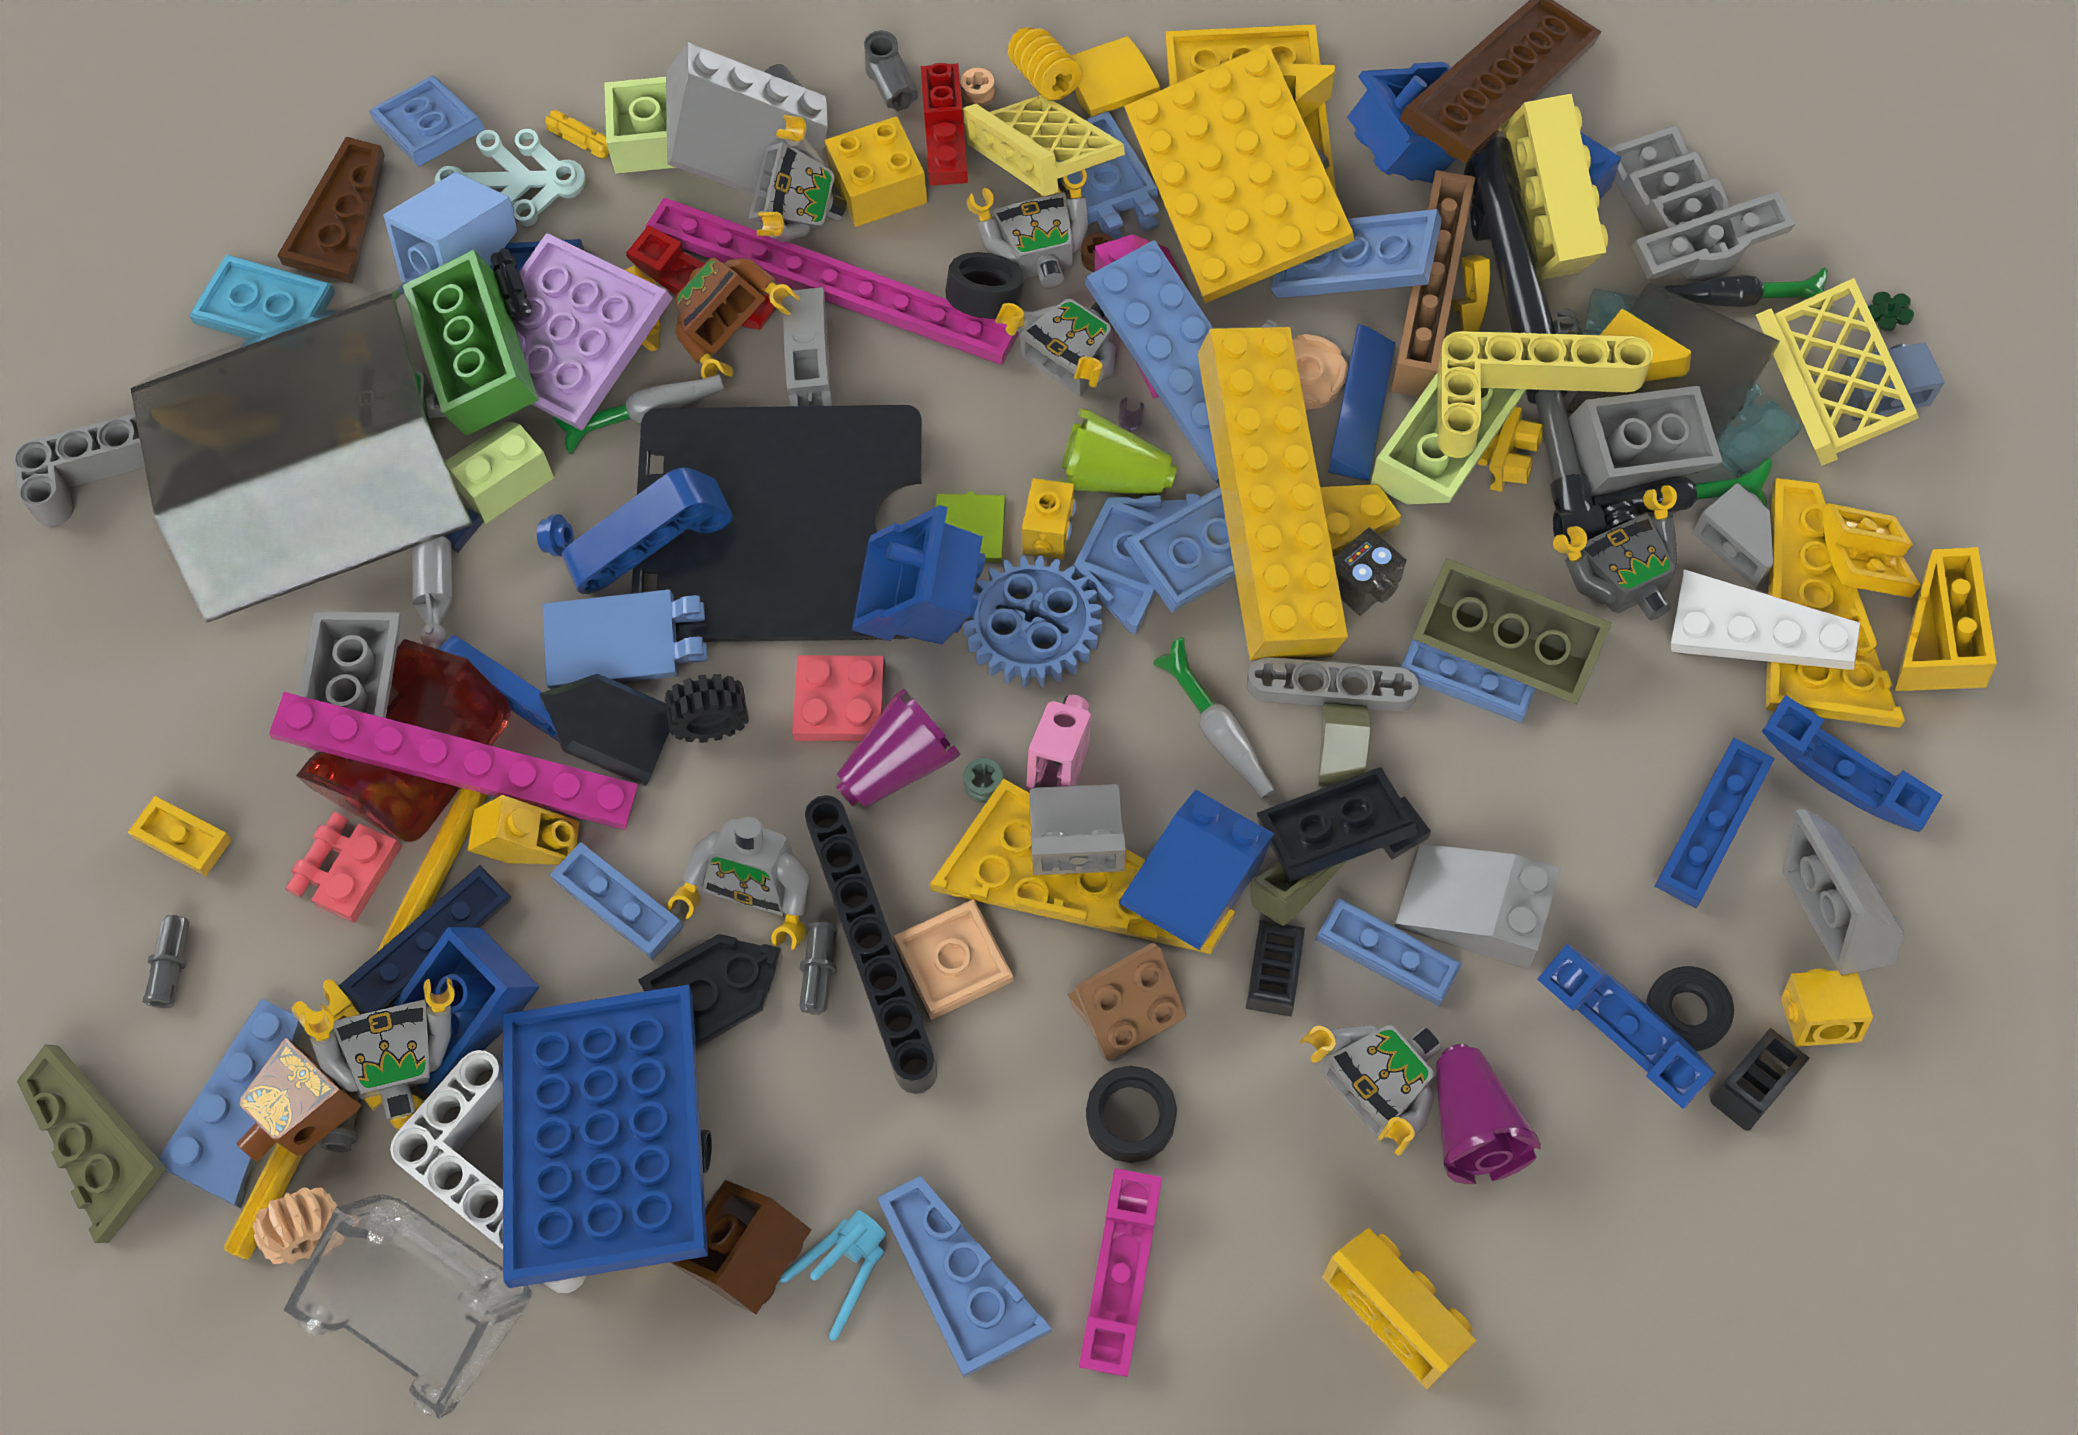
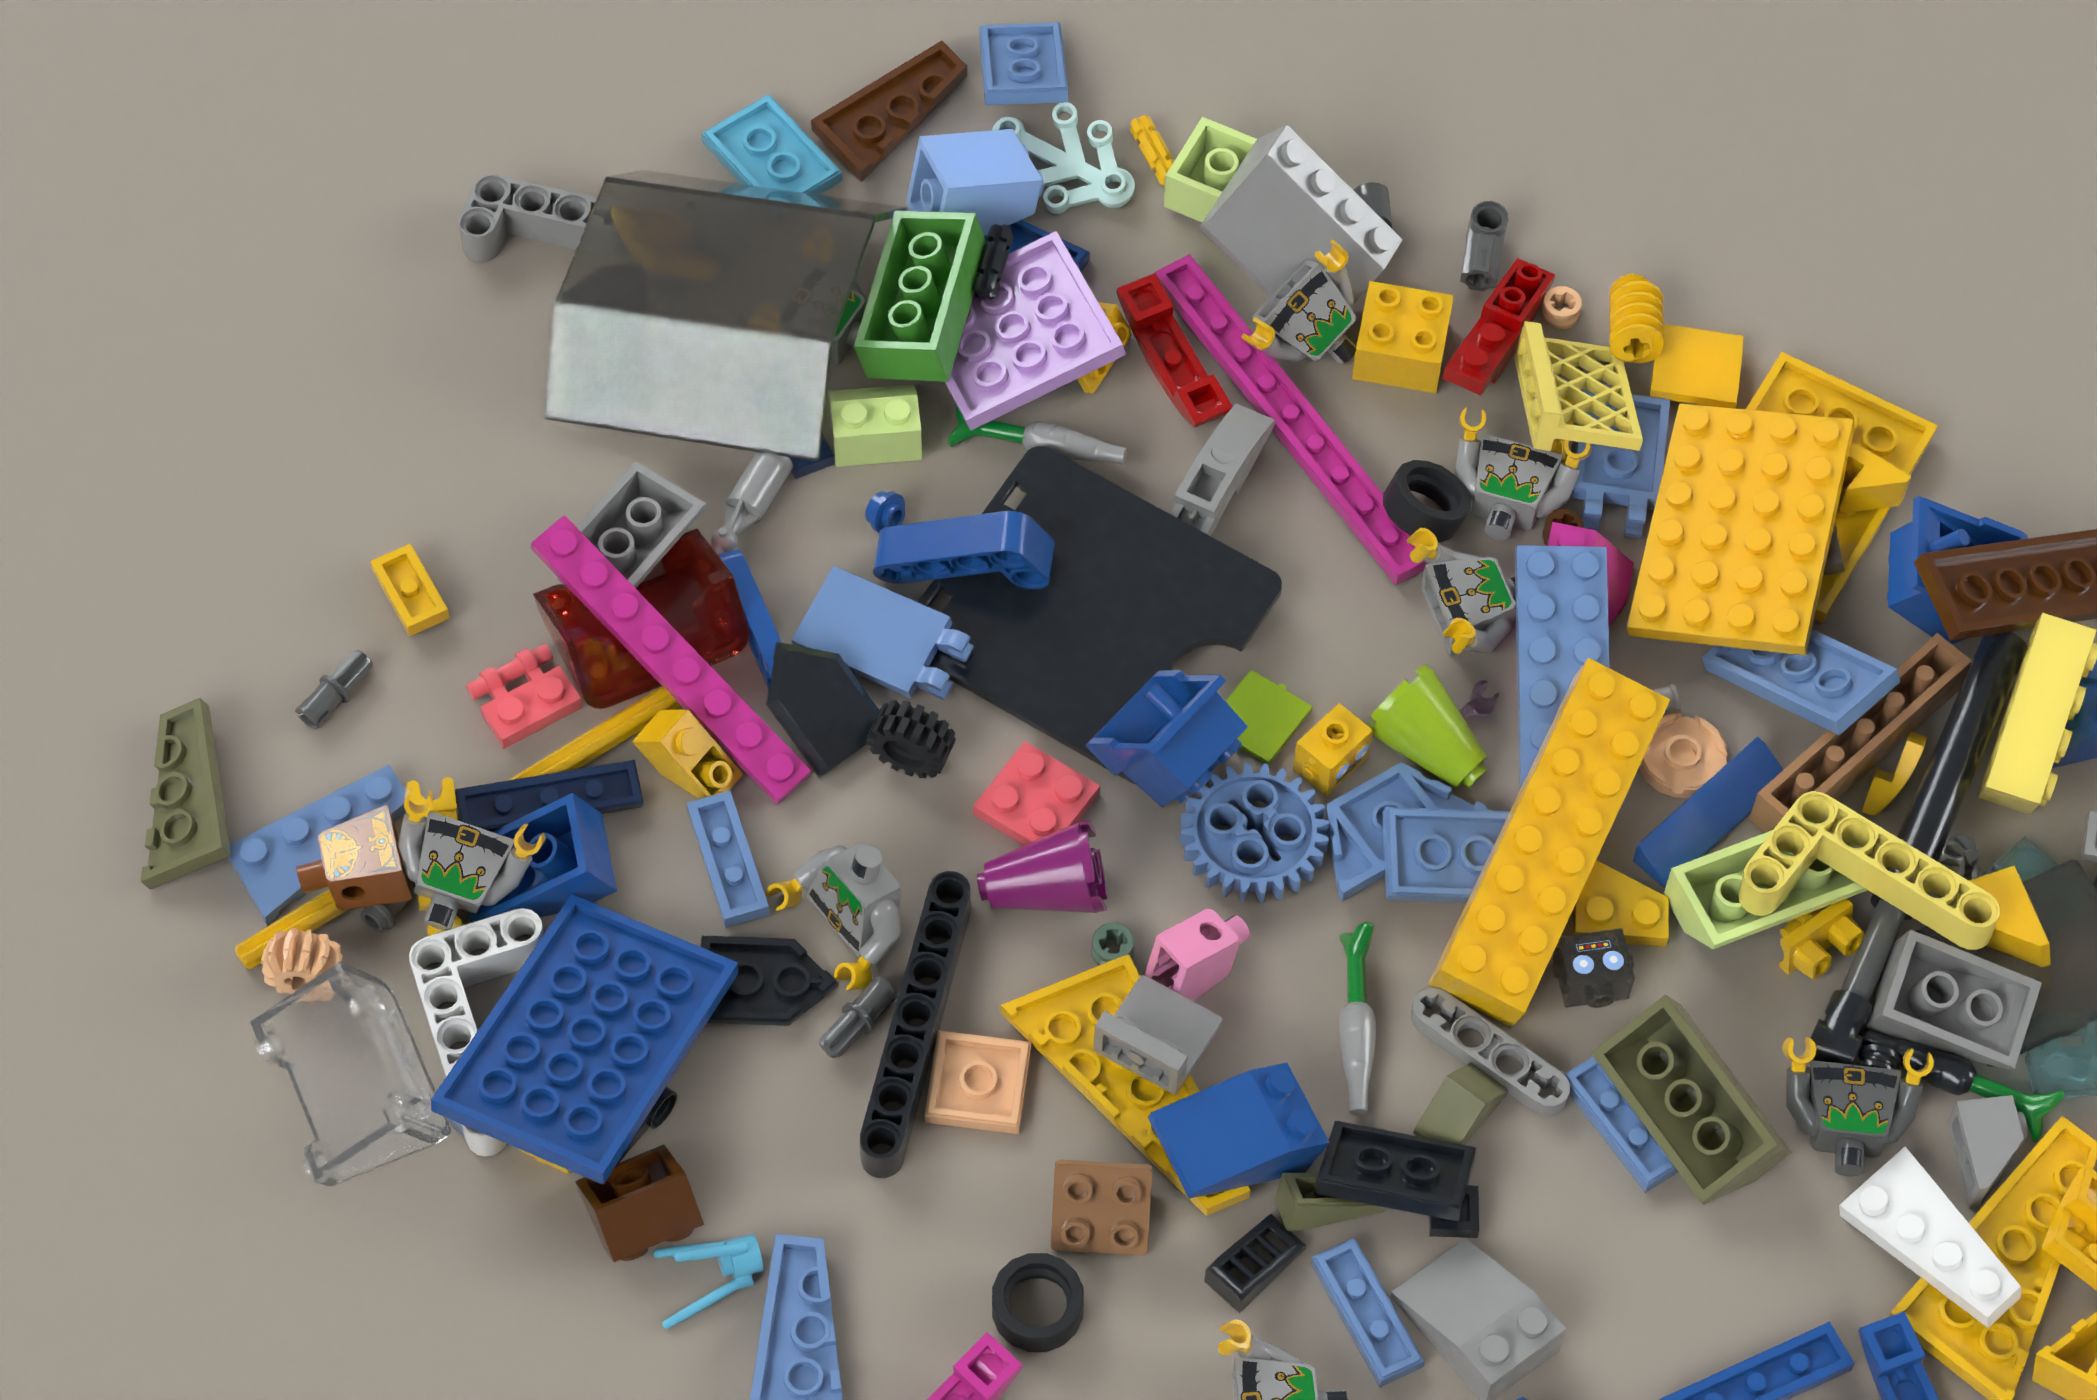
camera: 30 degrees right, 5 degrees down
(718, 303) = (1166, 382): dark orange torso -> none

